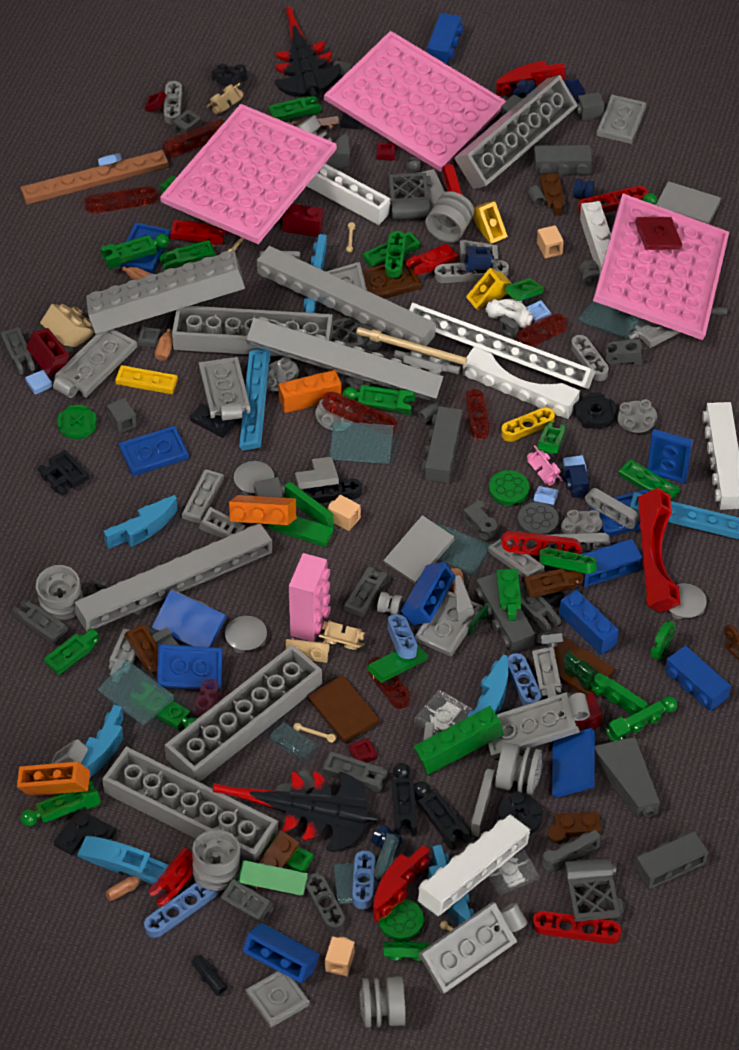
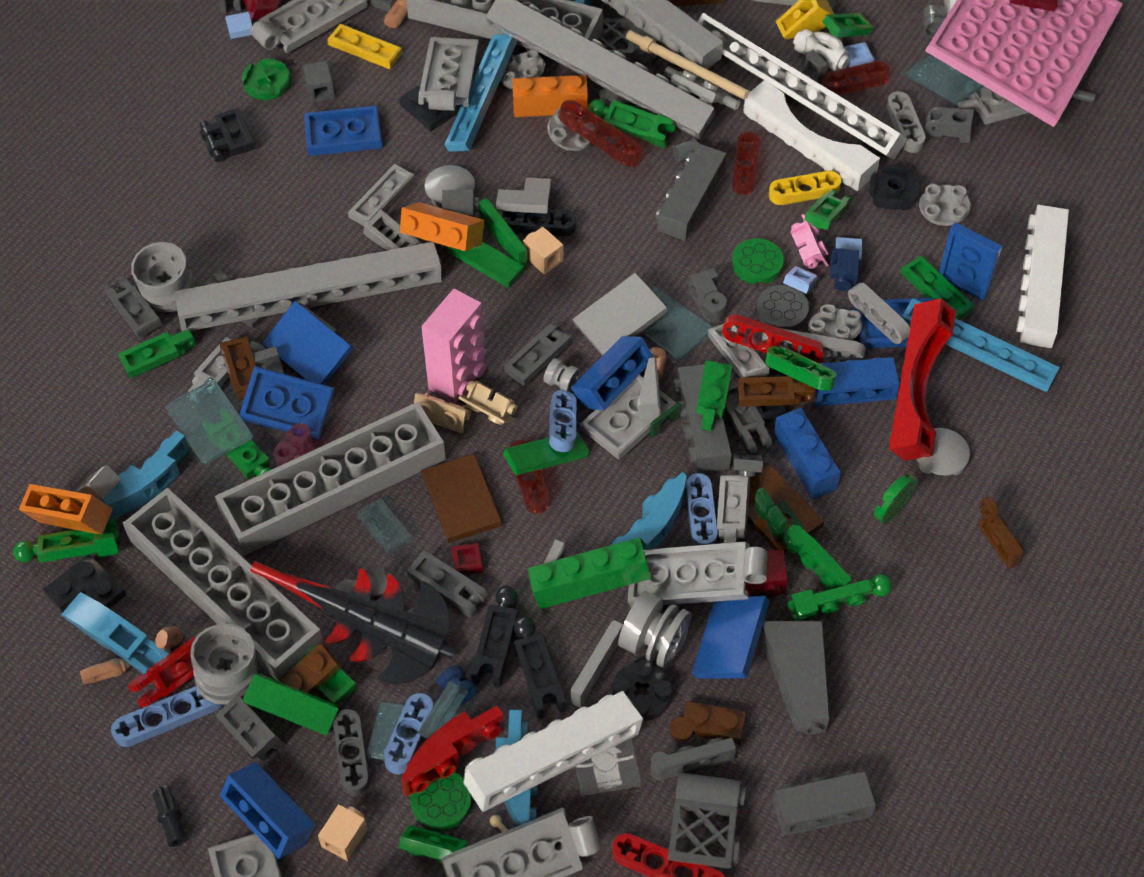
camera: 15 degrees right, 5 degrees up
(149, 521) = (305, 214): dark azure slope -> none
(164, 853) = (169, 638): none -> nougat piece
(245, 633) = (373, 375): light grey dish -> none
(331, 737) = (433, 532): tan hinge -> none
(361, 442) = (592, 169): clear light blue piece -> none
(442, 711) = (583, 530): clear tile -> none
(697, 678) = (928, 559): blue brick -> none

